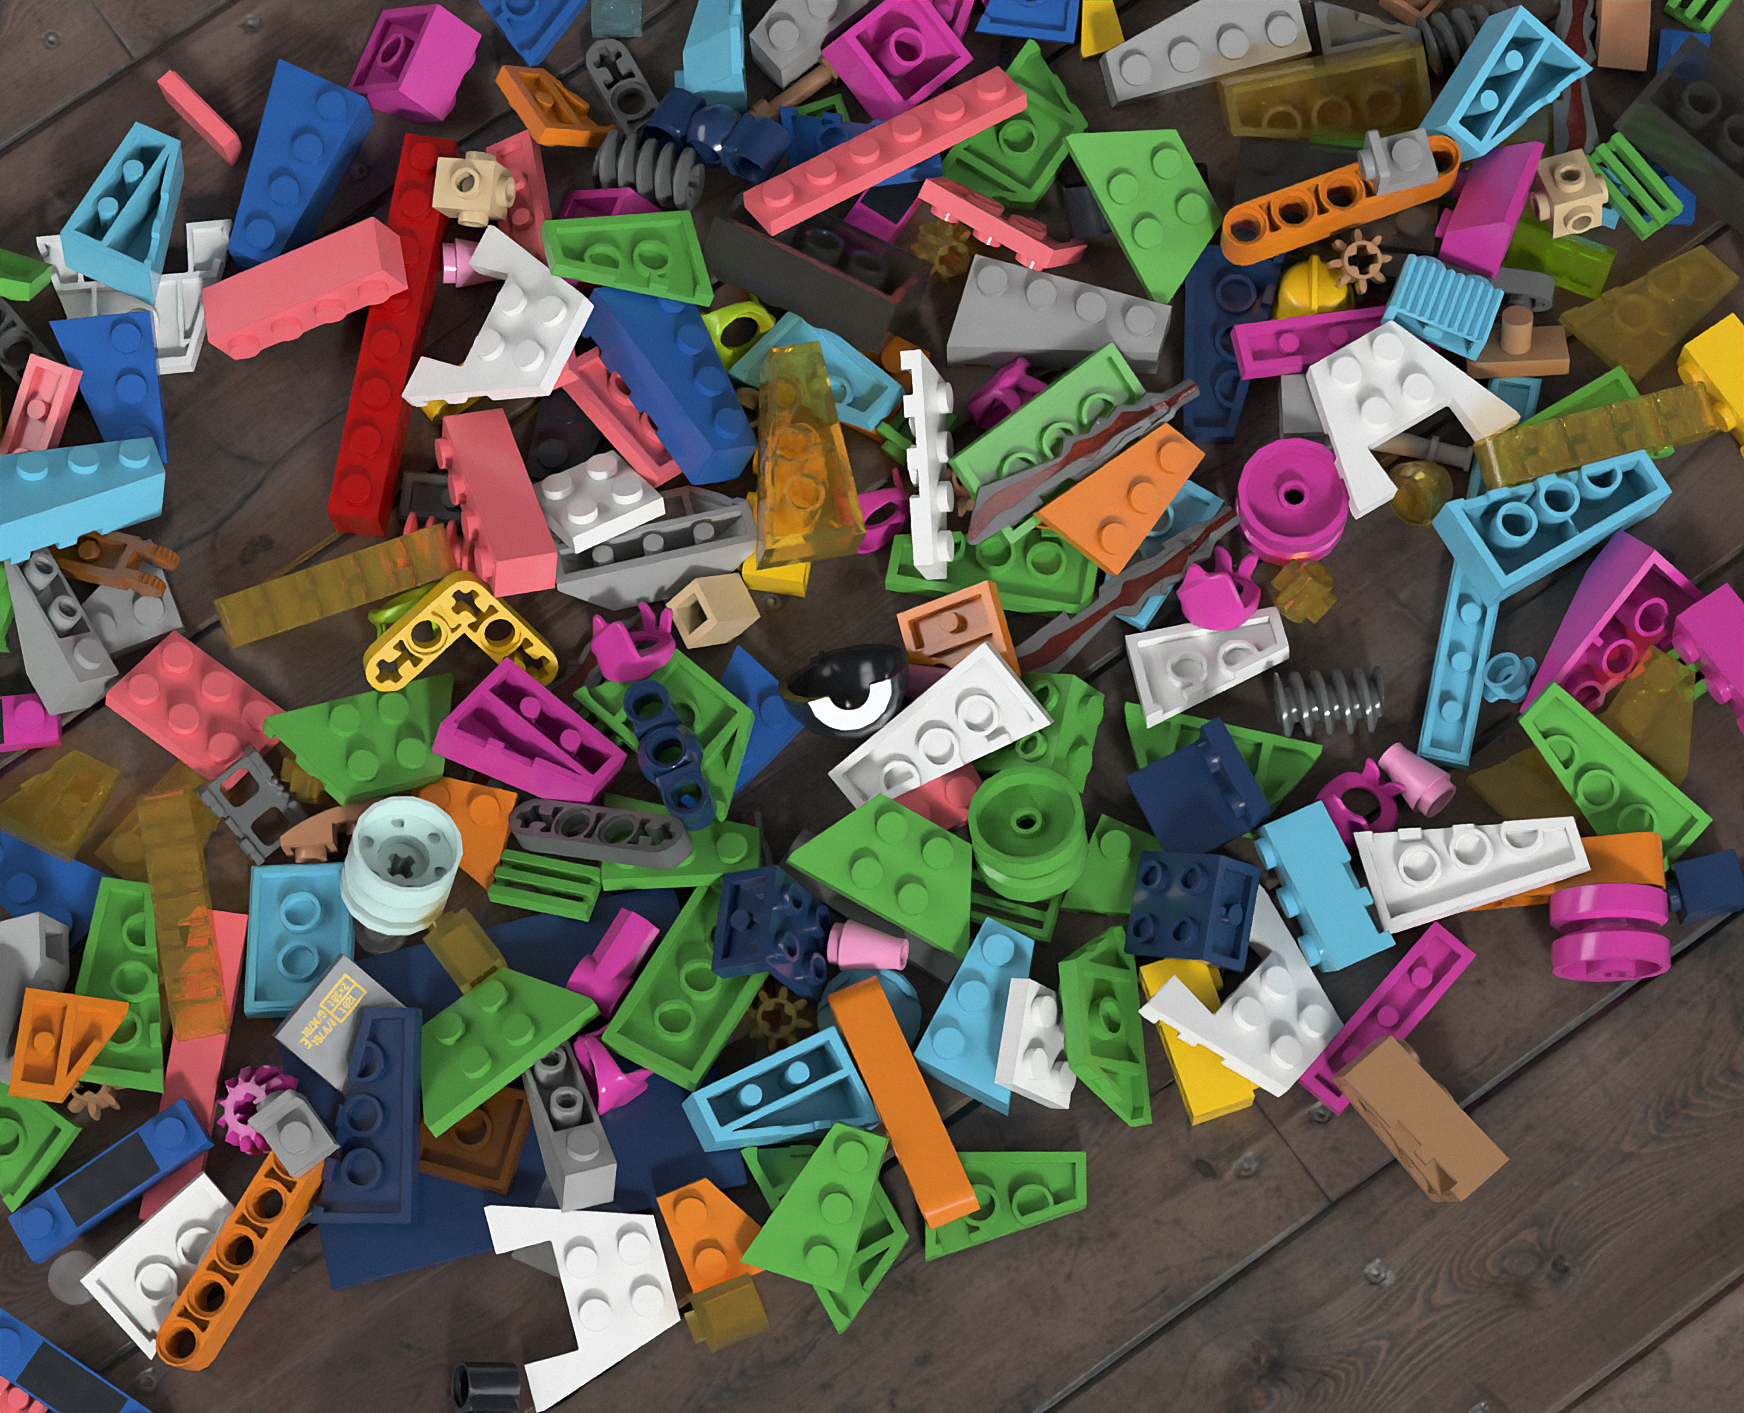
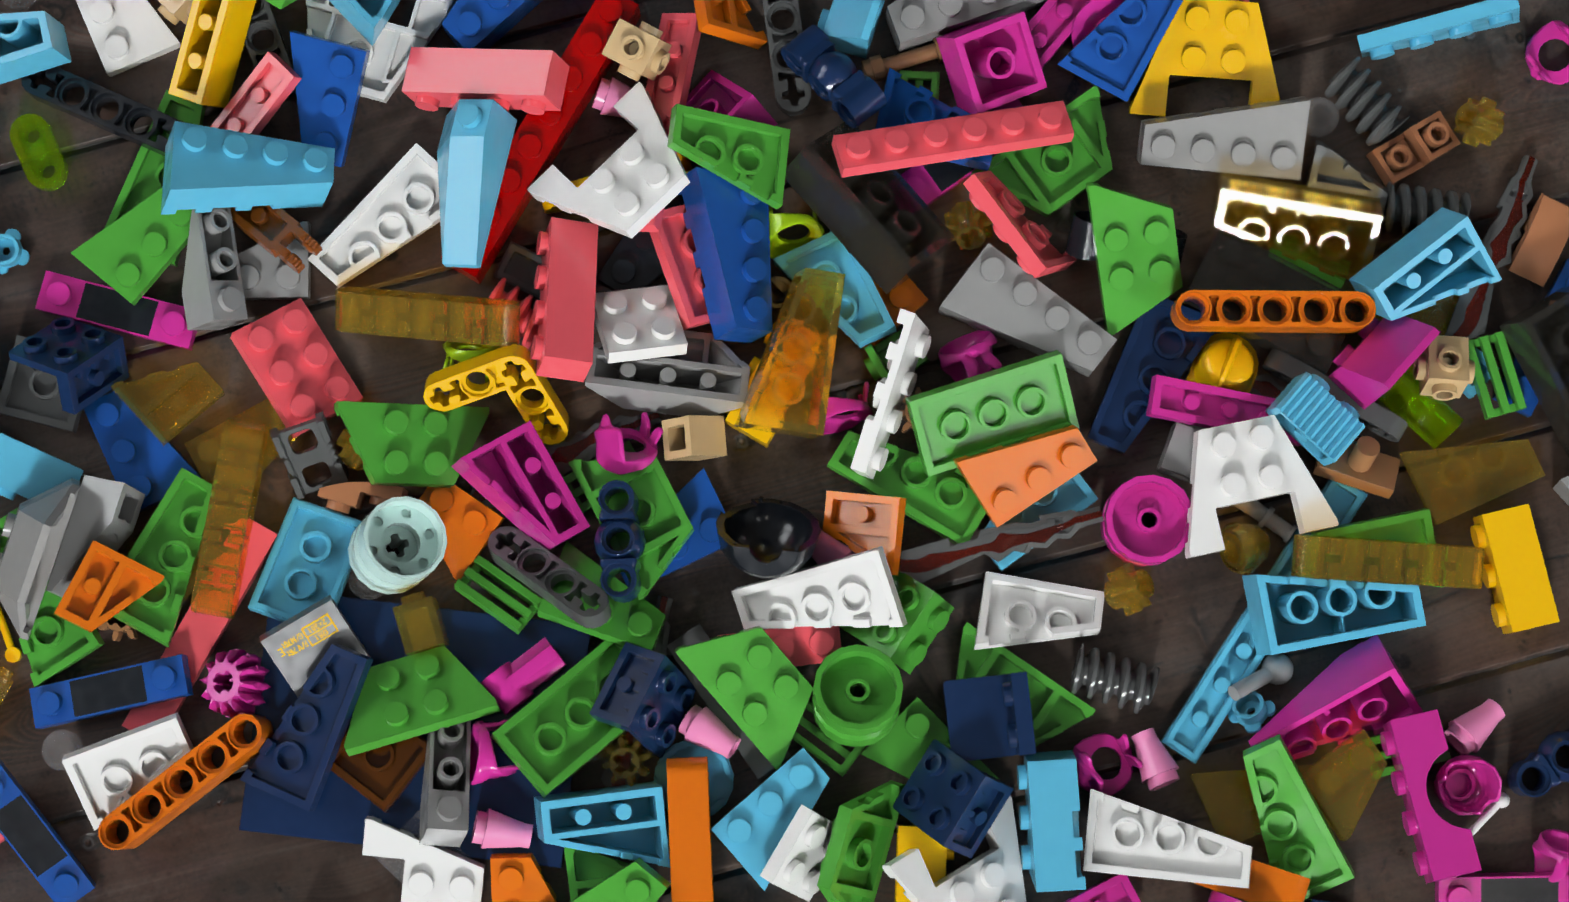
camera: 15 degrees right, 10 degrees up
(252, 489) = (385, 220): none -> white wing
(293, 1131) = (248, 717): light grey bracket -> none
(327, 402) = (470, 177): none -> medium azure wedge
(649, 173) = (772, 85): dark grey piece -> none
(656, 1161) = (500, 831): none -> bright pink cone
(1080, 455) = (1005, 429): dark grey sword -> none
(1212, 598) = (1060, 573): dark pink piece -> none
(1365, 249) = (1272, 370): medium nougat gear -> none
(1397, 161) = (1325, 304): light grey bracket -> none
(1517, 622) = (1275, 670): none -> light grey bar

